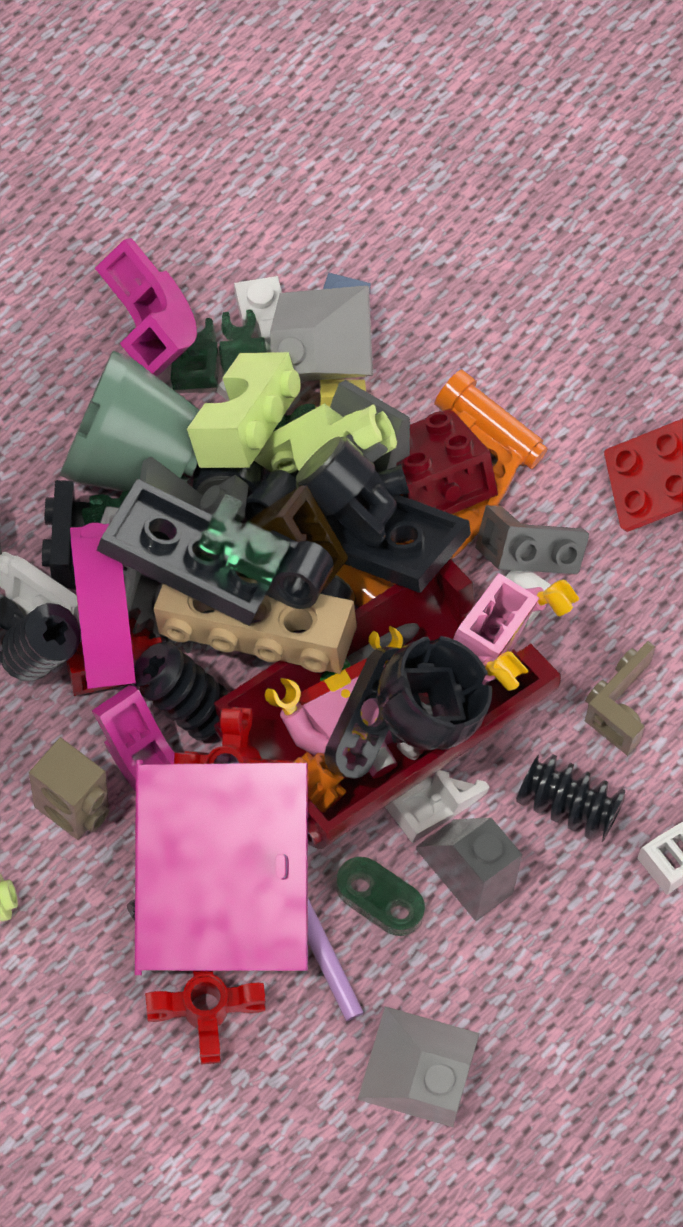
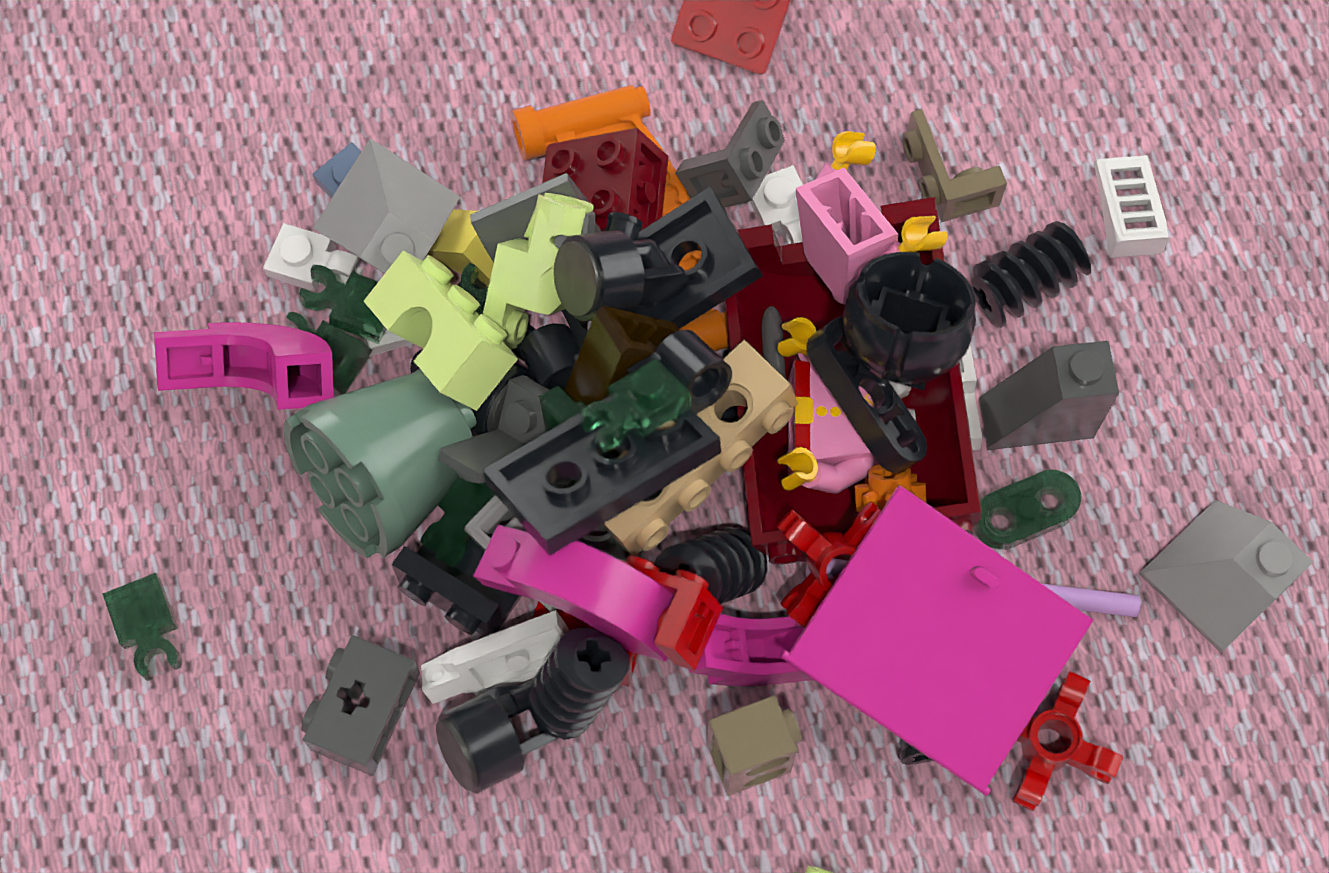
camera: 55 degrees left, 5 degrees up
(122, 677) = (689, 620): none -> red bracket

